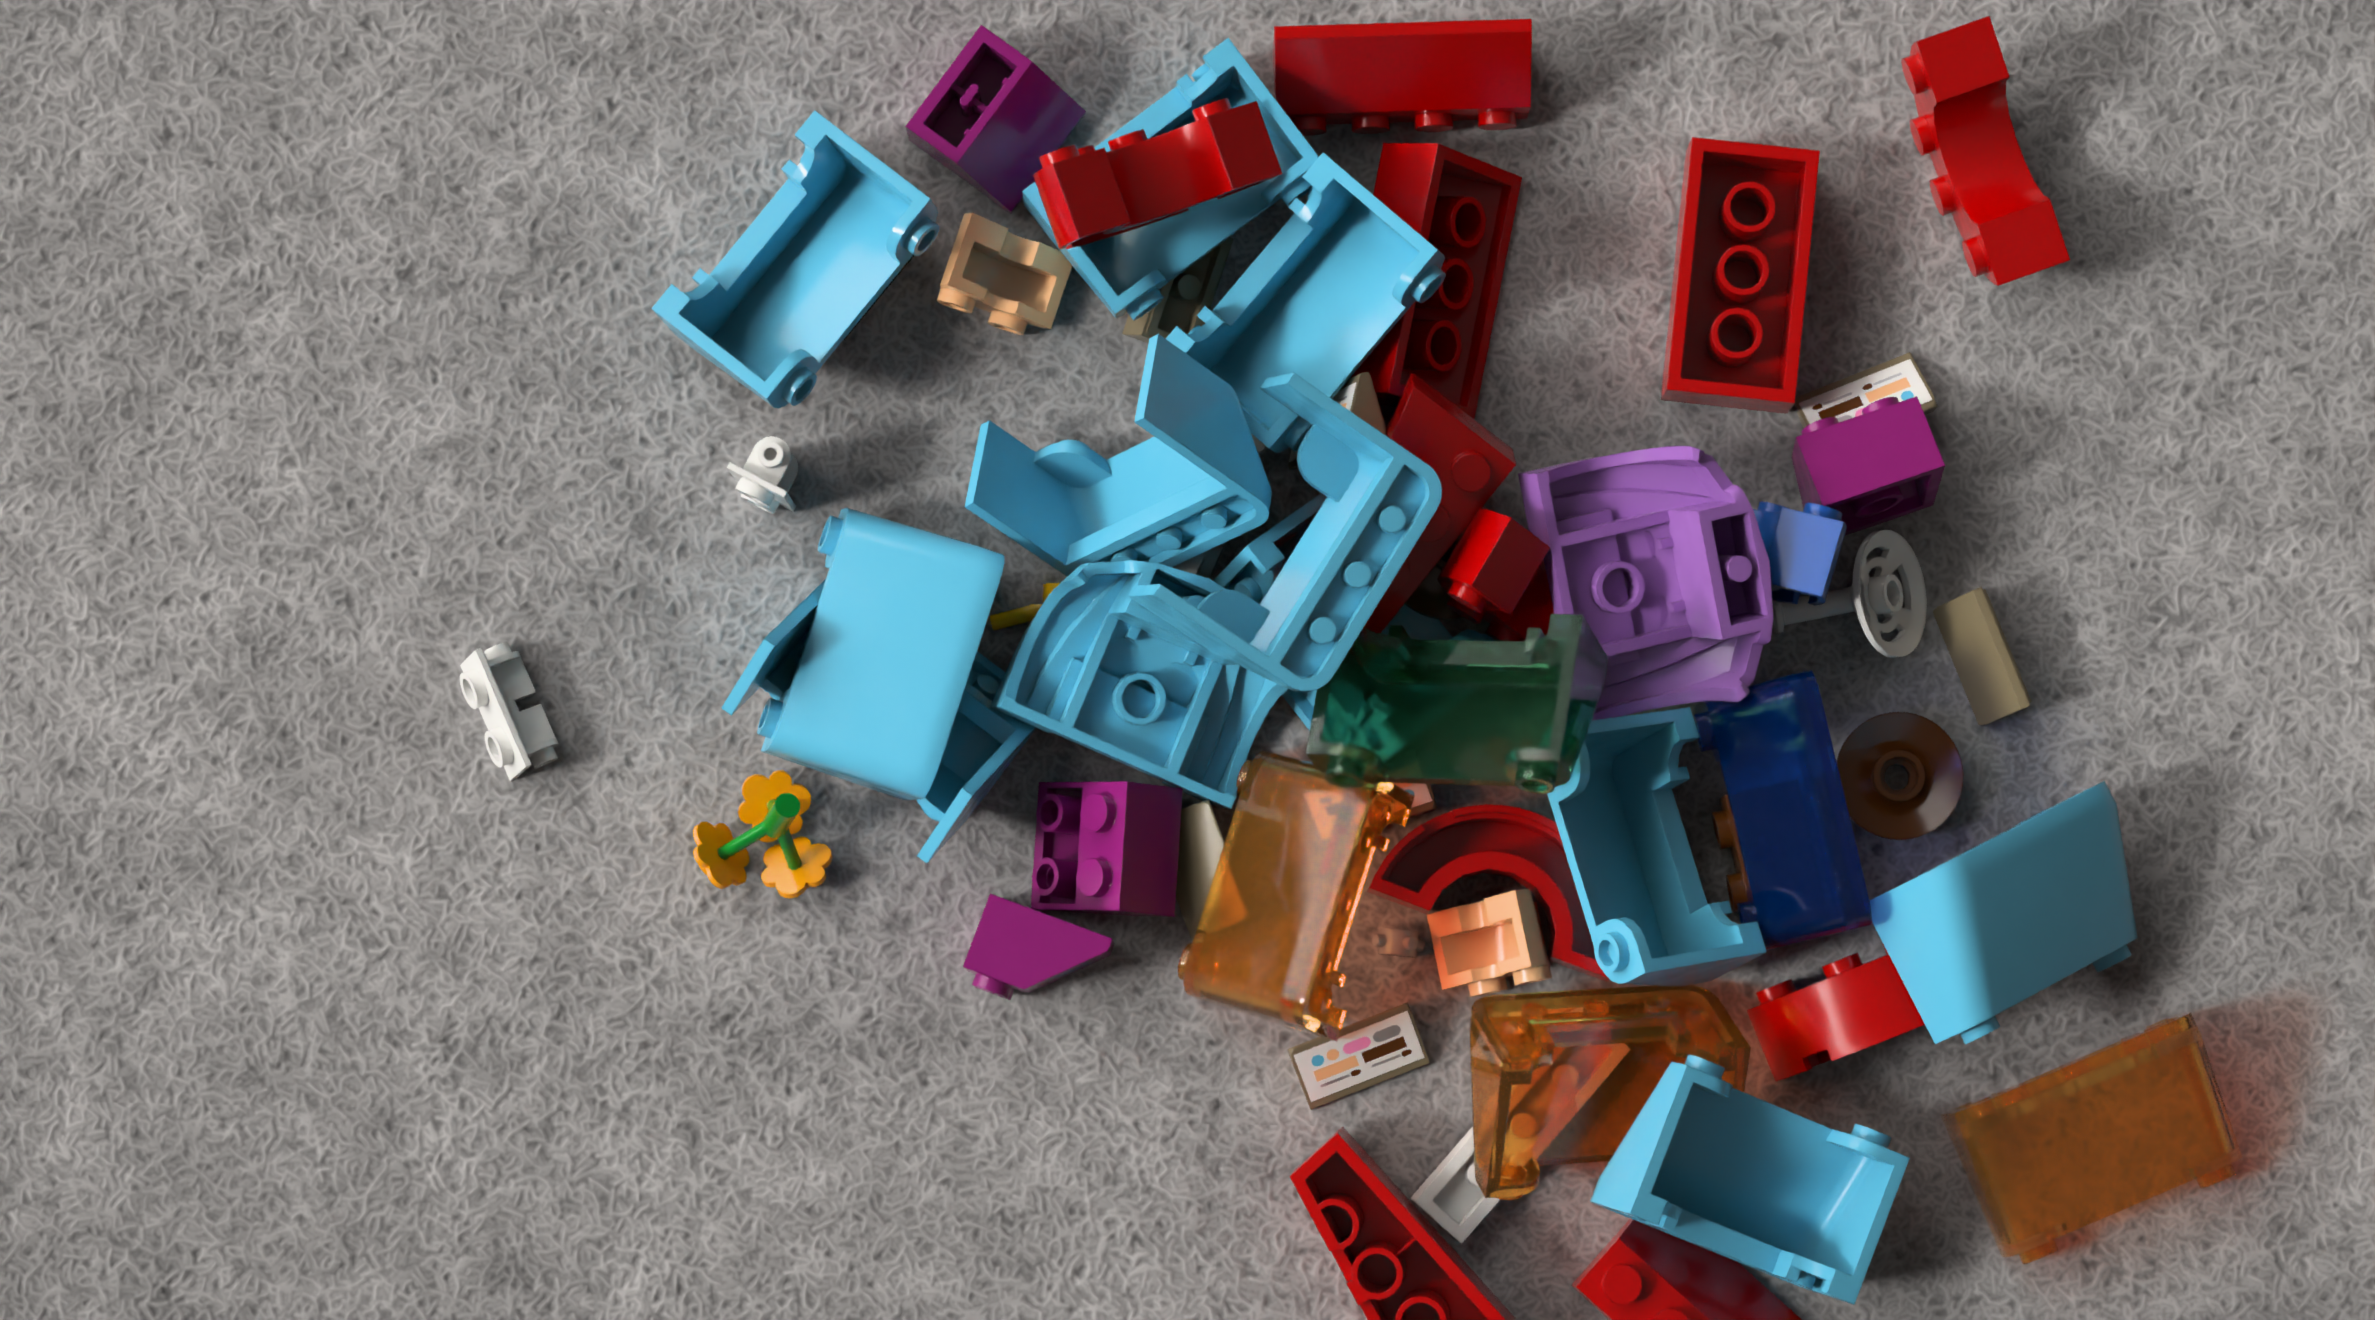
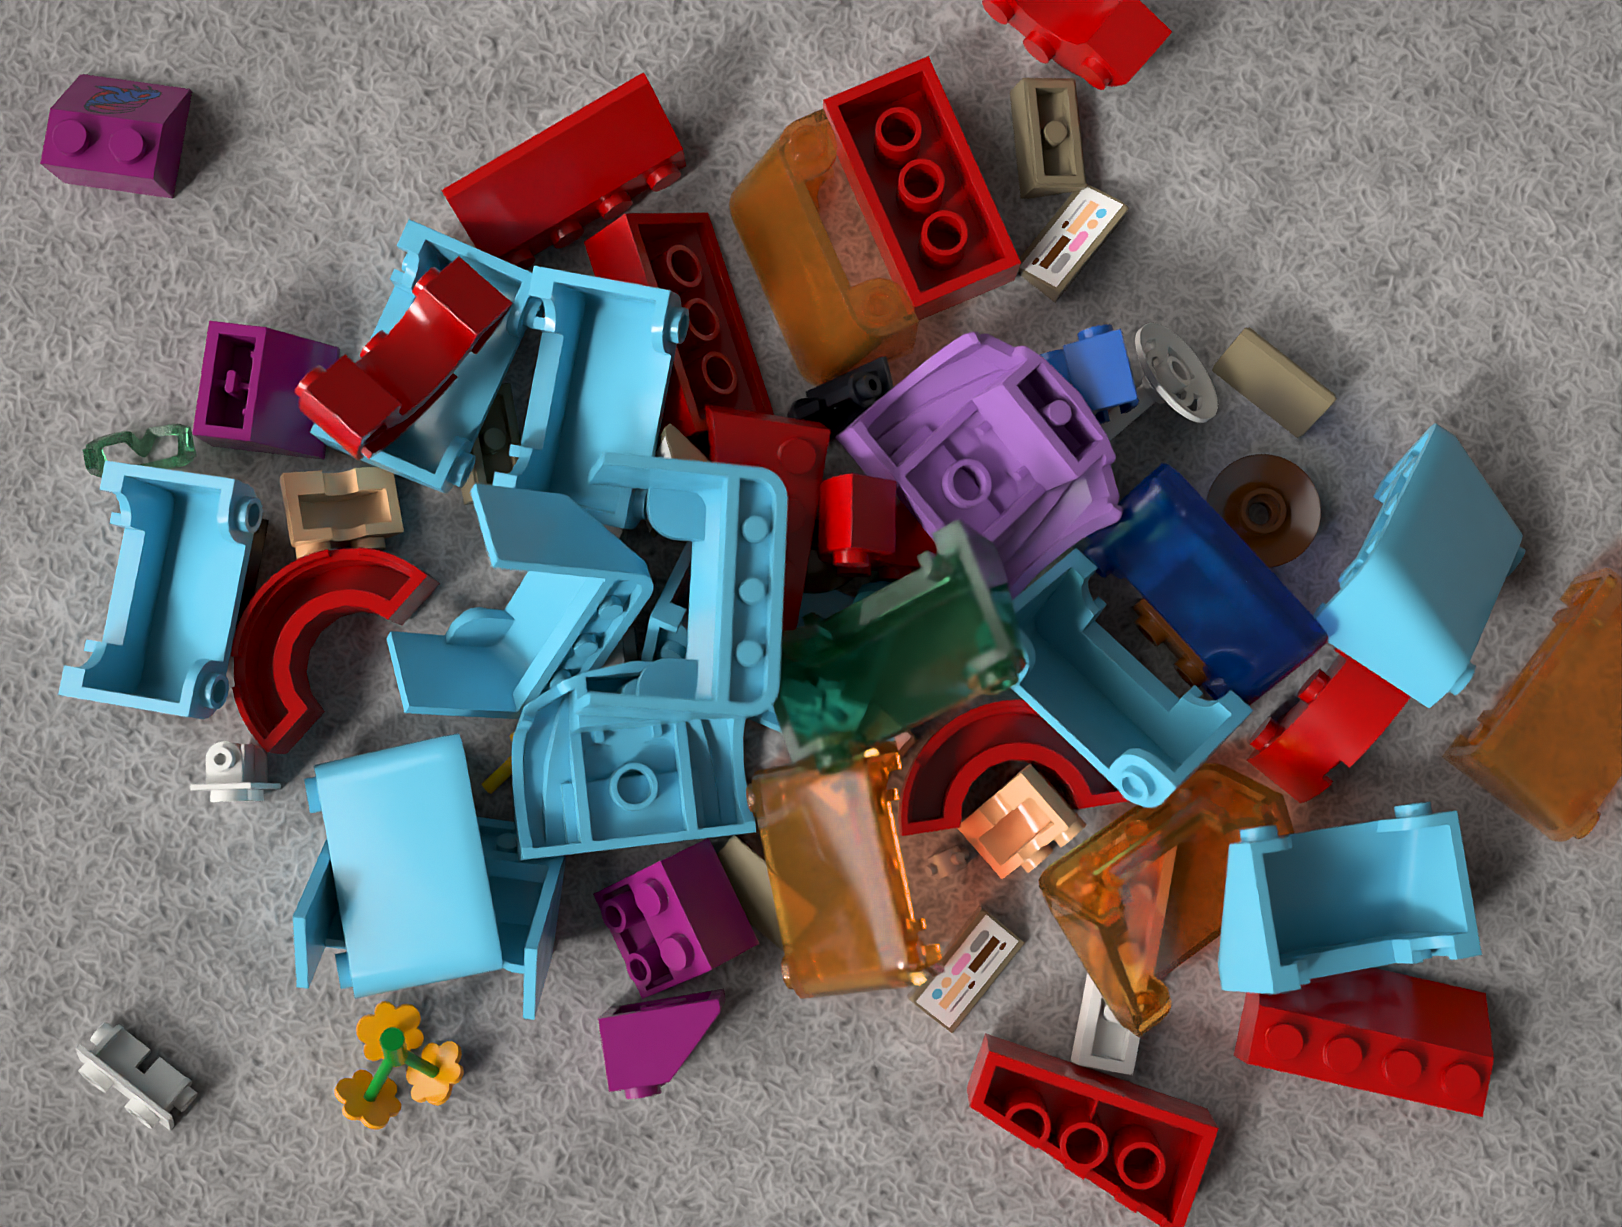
camera: 30 degrees left, 0 degrees up
(884, 131) = (95, 457): none -> clear green helmet
(909, 347) = (287, 618): none -> red brick
(1550, 438) = (844, 397): none -> black hinge
(1571, 355) = (817, 310): none -> clear orange windscreen
(1870, 464) = (1107, 276): magenta slope -> none
(1900, 290) = (1047, 137): none -> dark tan slope

